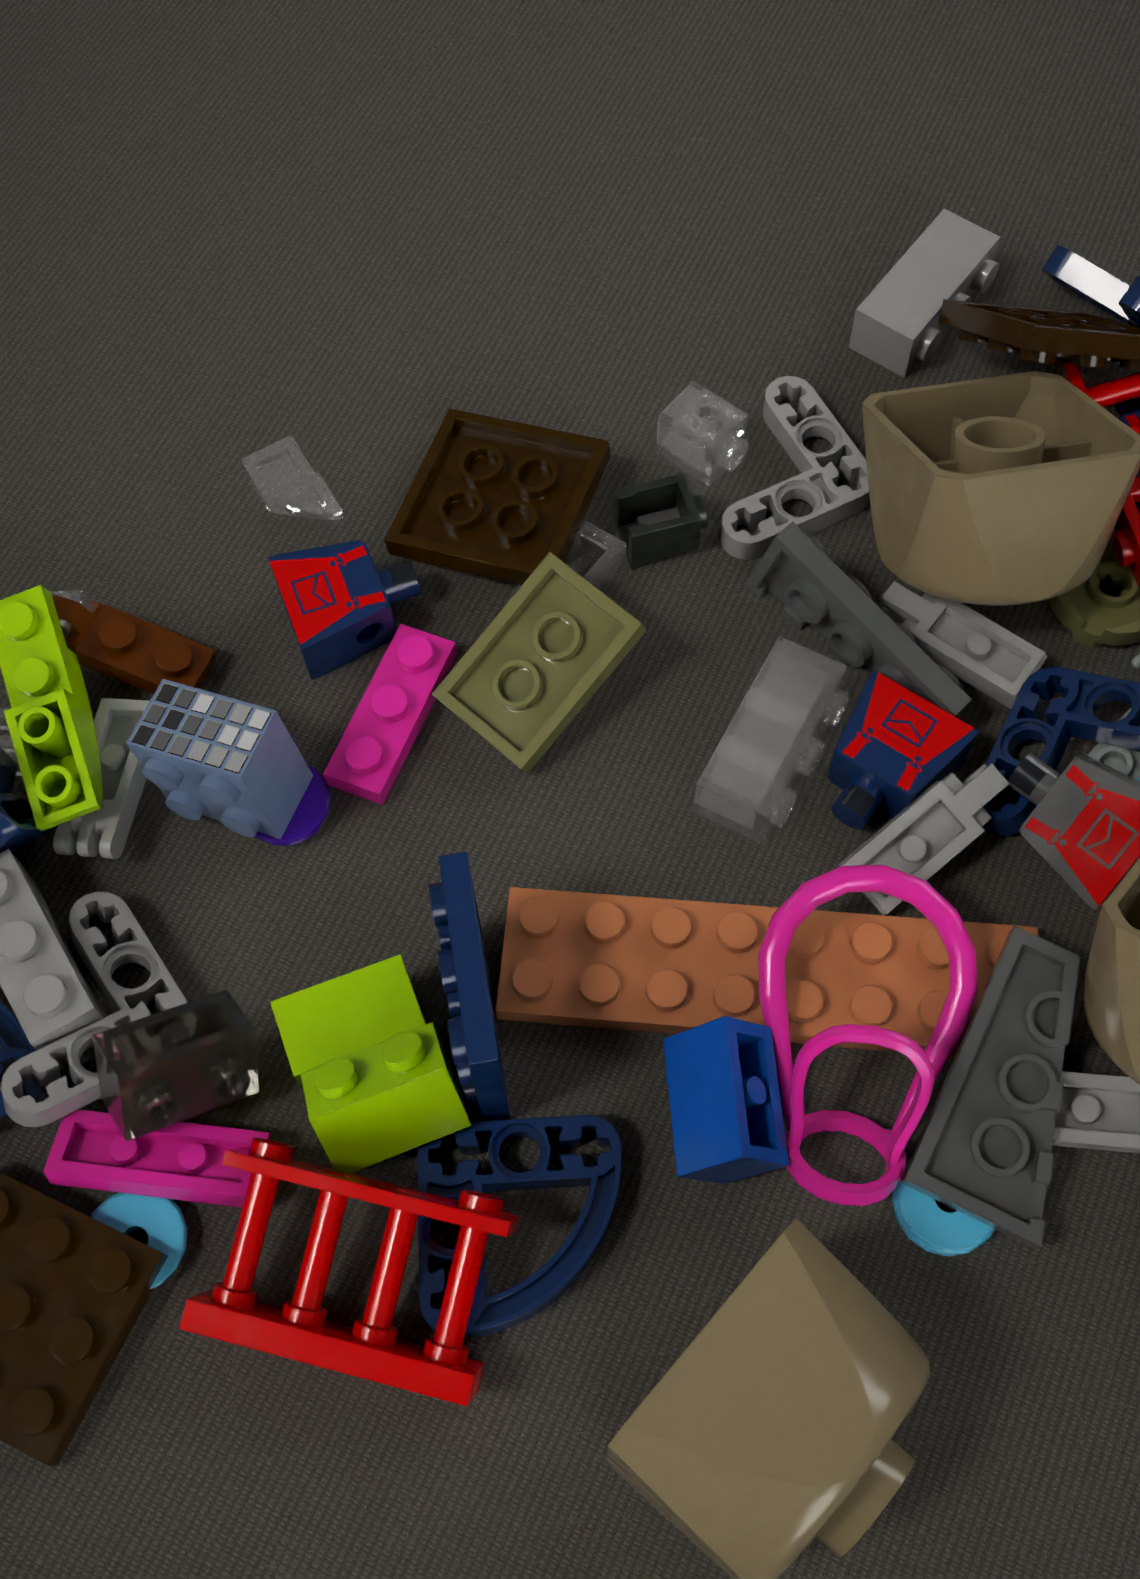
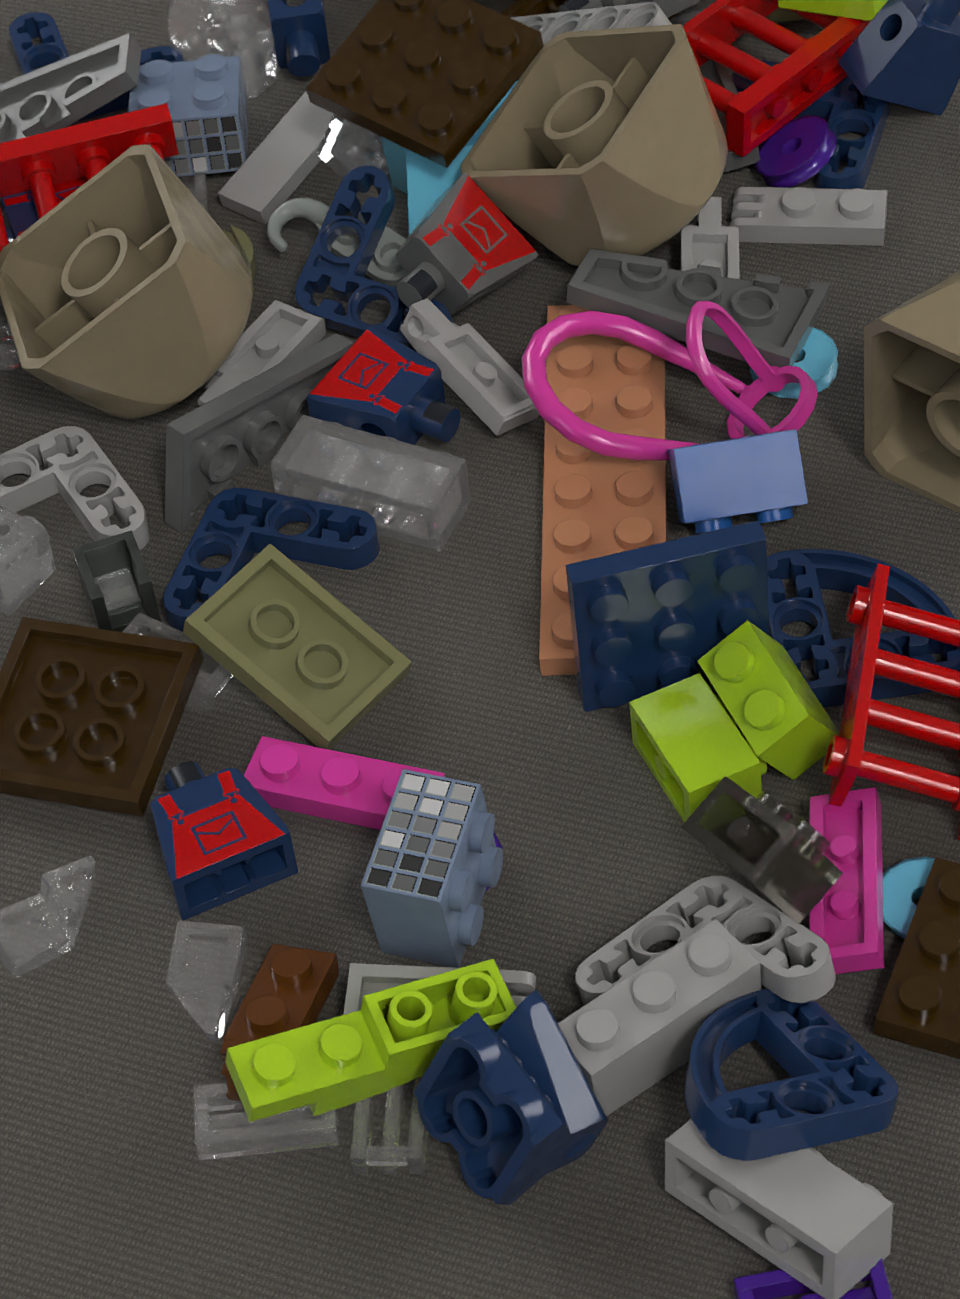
camera: 90 degrees left, 15 degrees down
(202, 603) = (206, 972): none -> clear slope
(715, 629) = (248, 521): none -> dark blue beam

